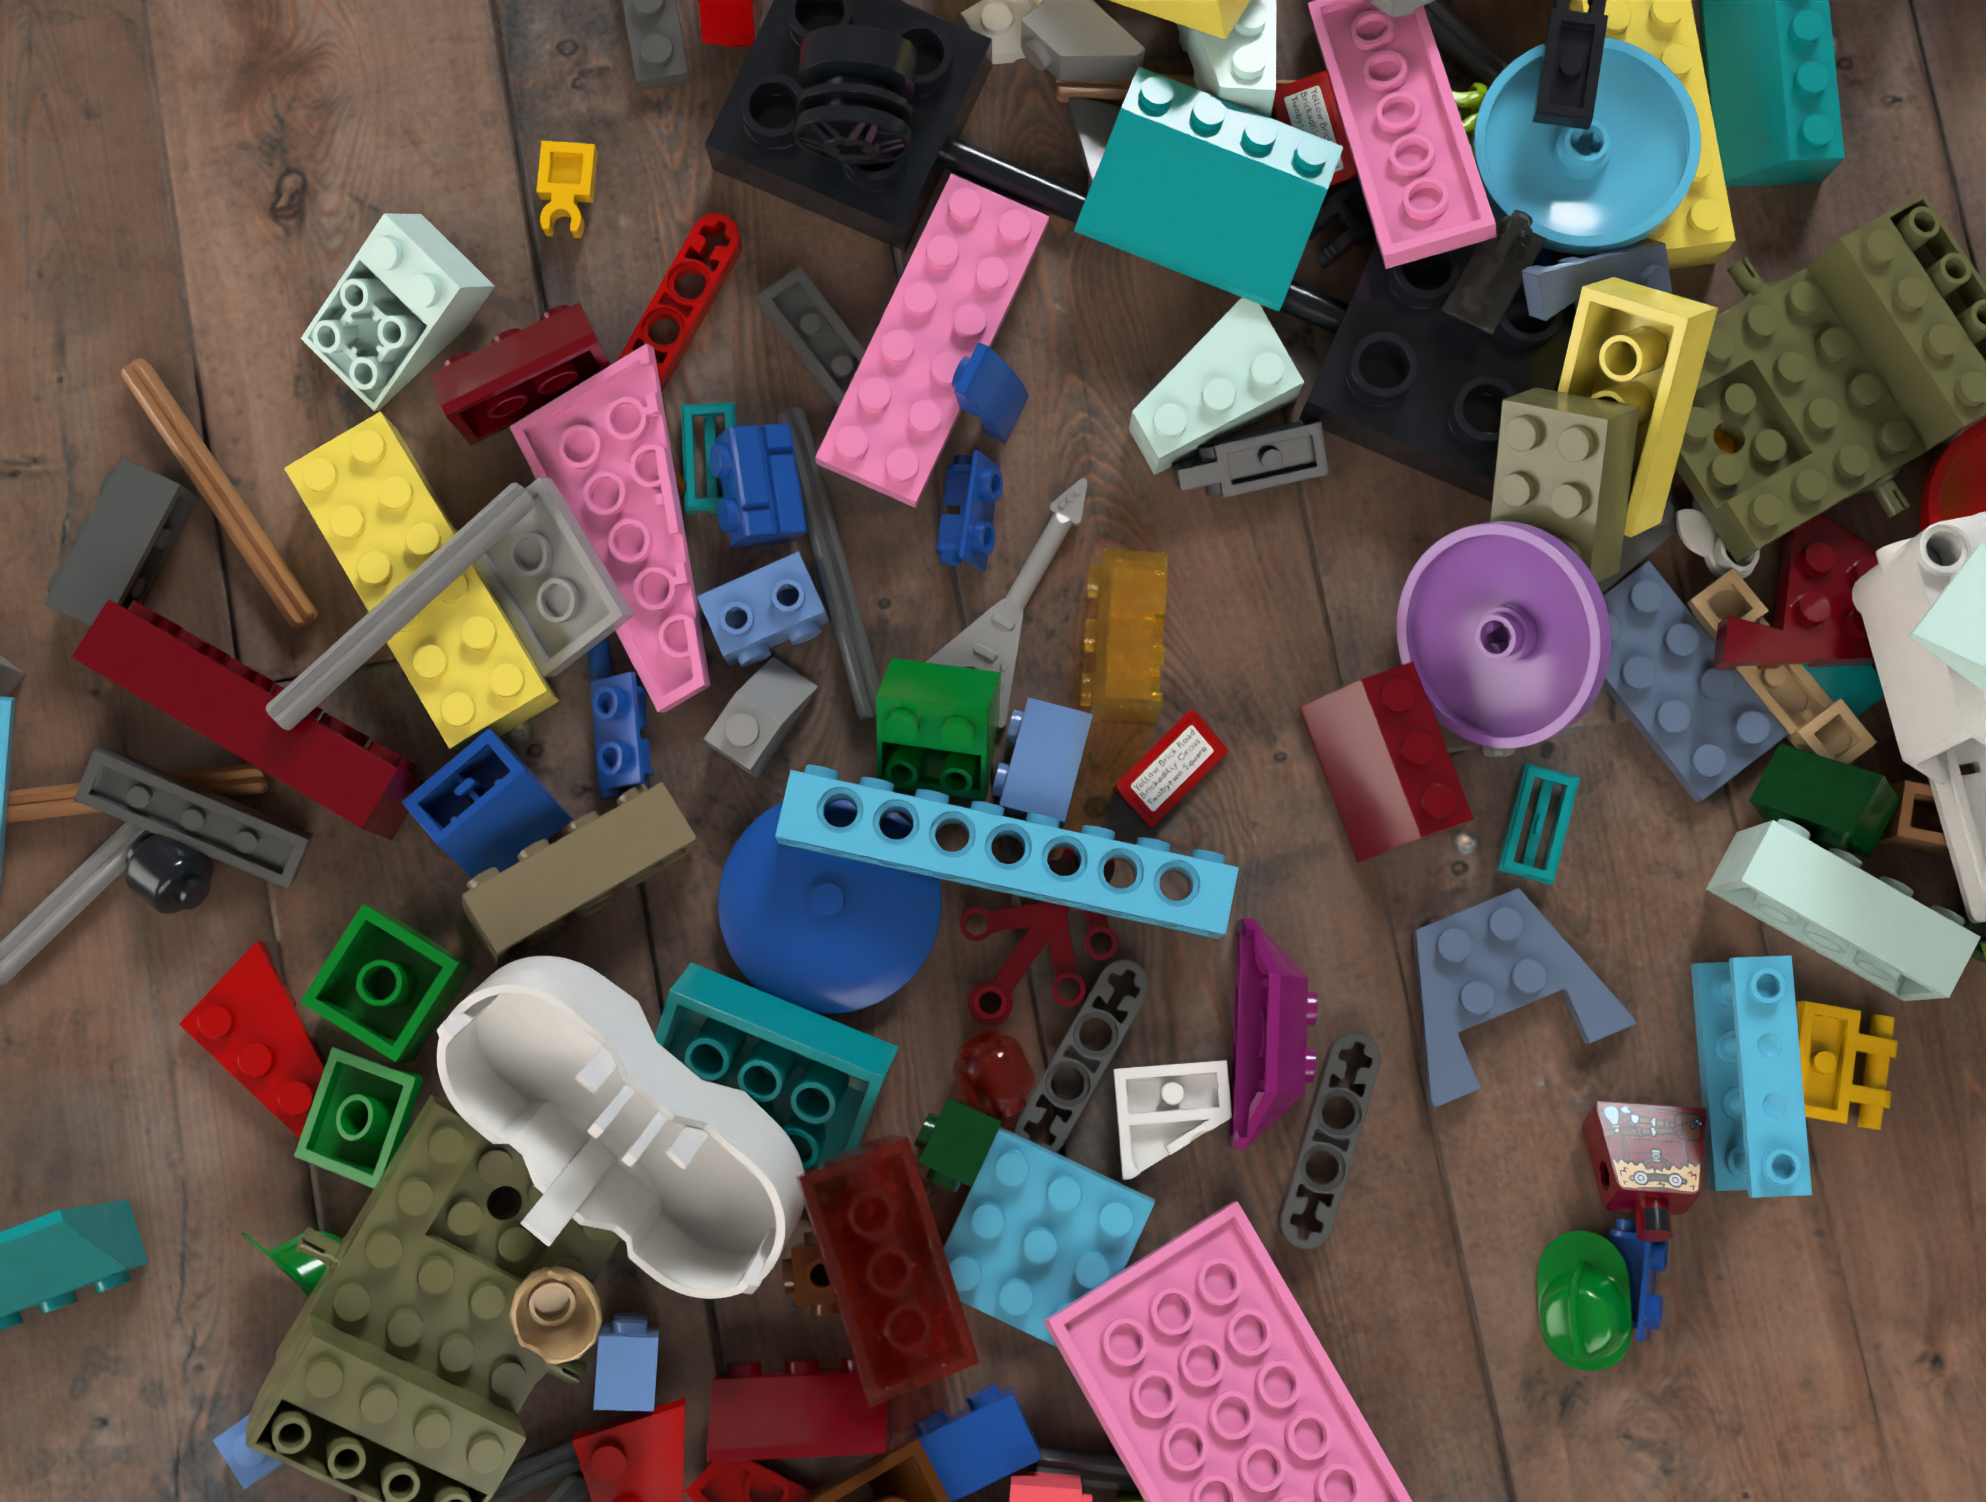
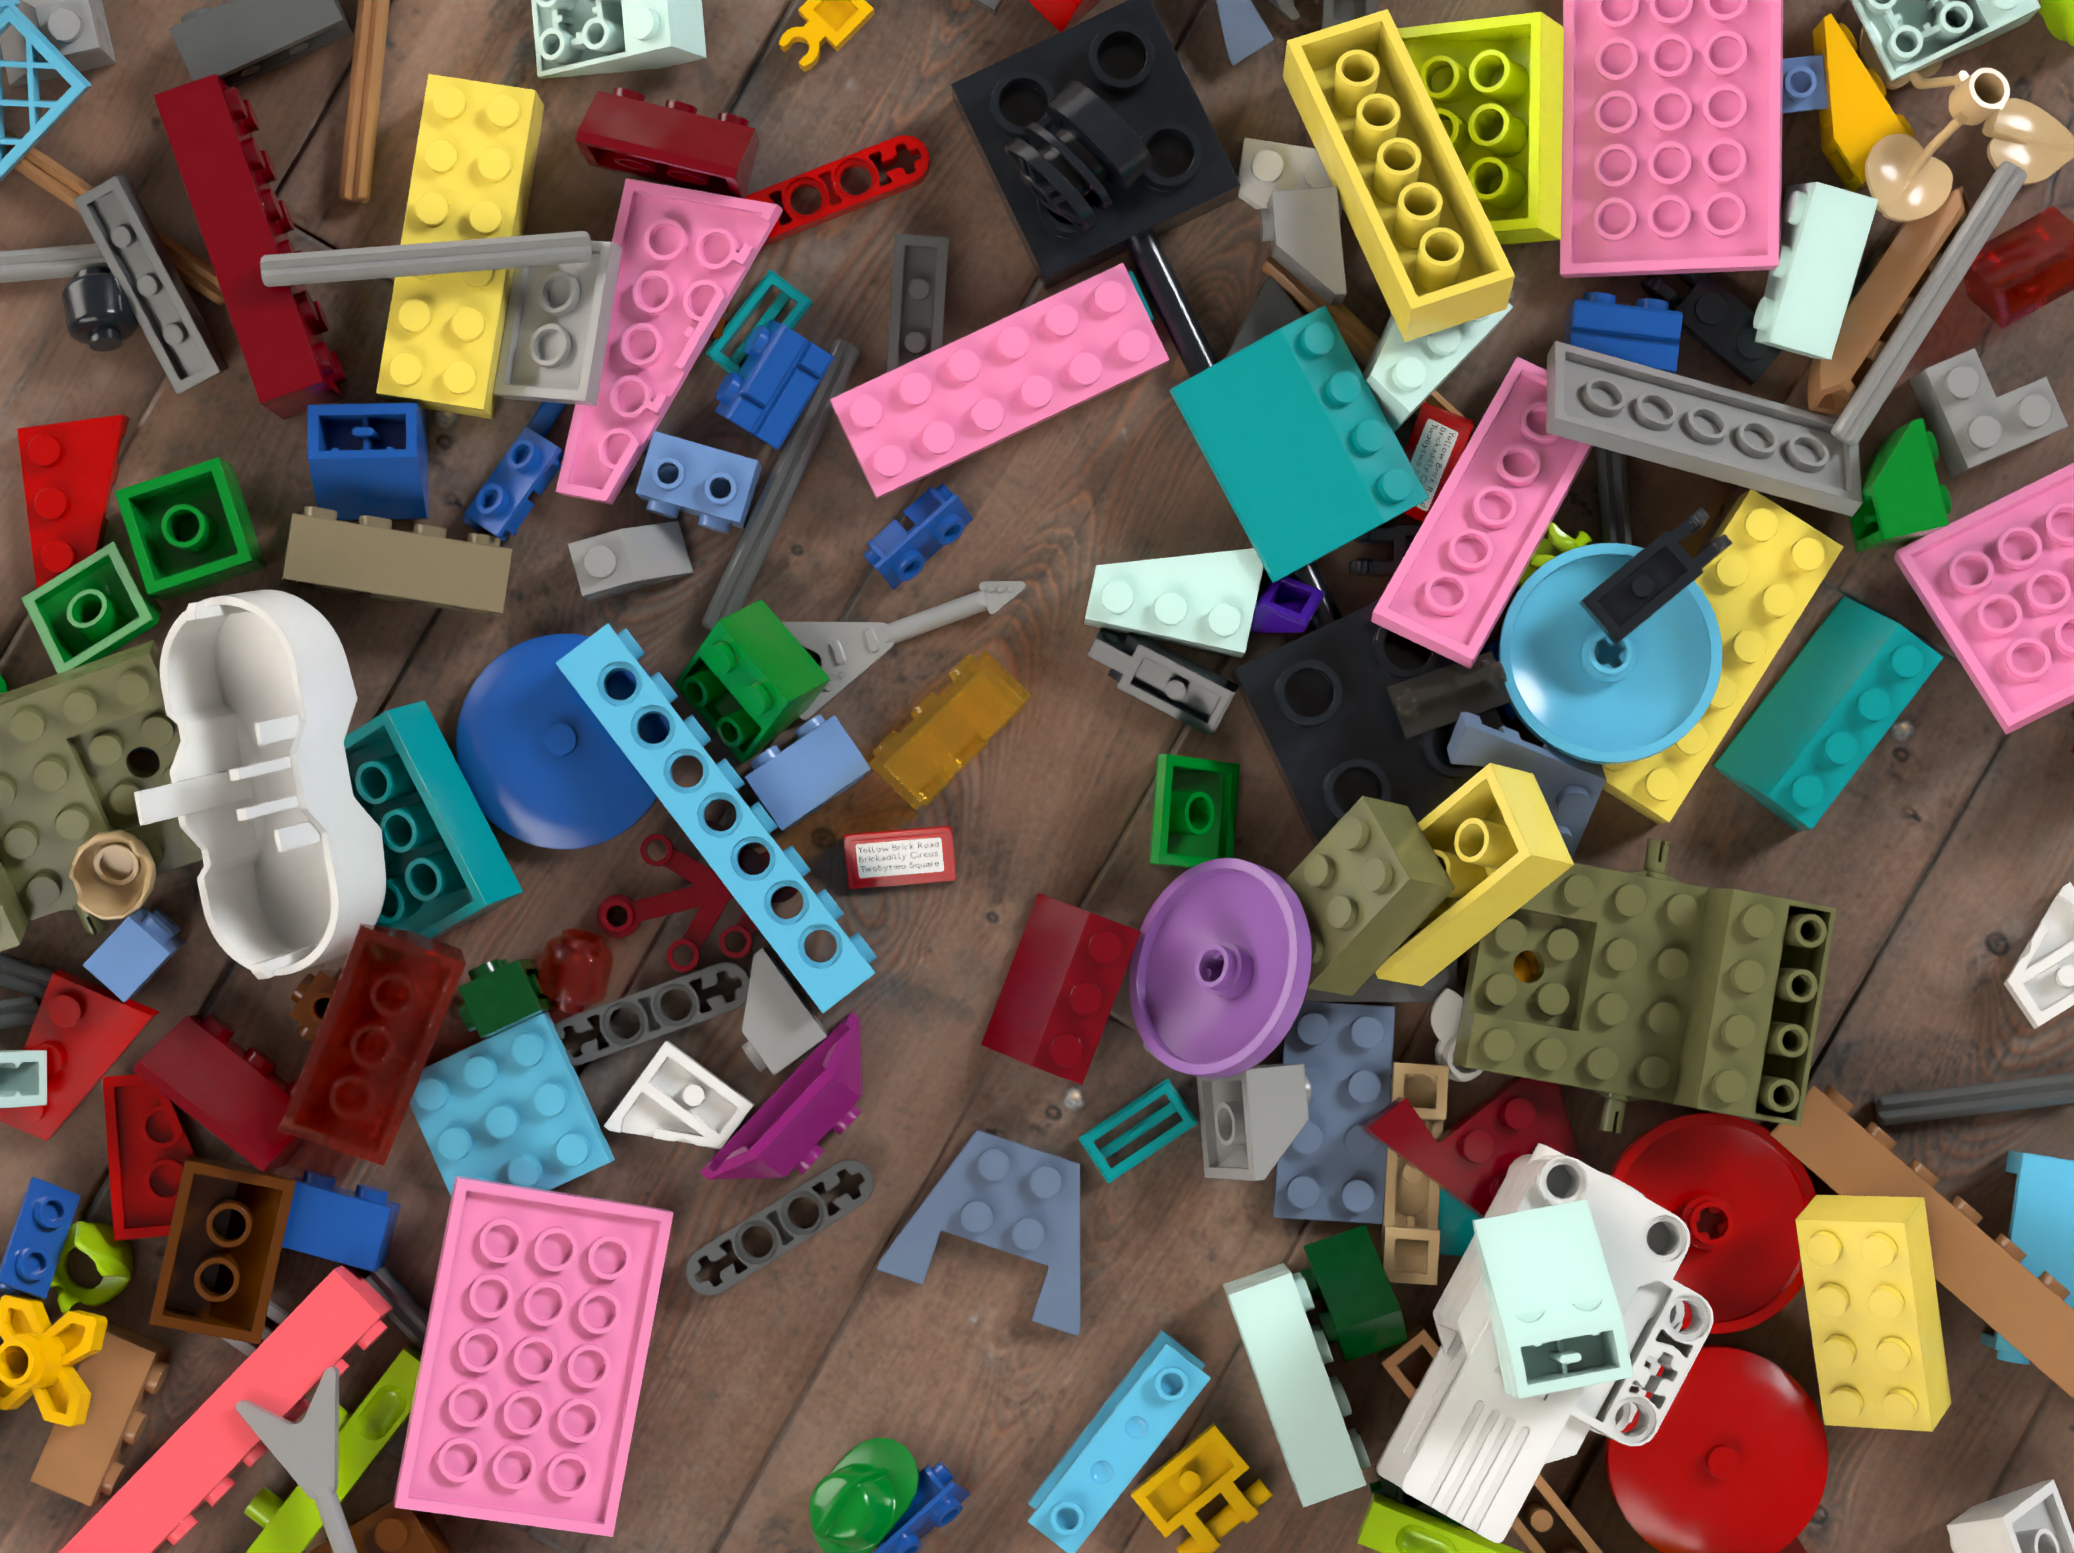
camera: 40 degrees right, 5 degrees up
(990, 391) = (1004, 459): blue slope -> none
(1186, 975) = (777, 1018): none -> light grey slope
(1302, 325) = (1286, 607): none -> dark purple slope
(1361, 545) = (1193, 811): none -> green slope
(1625, 739) = (1251, 1119): none -> light grey slope
(1647, 1161) = (992, 1438): torso -> none

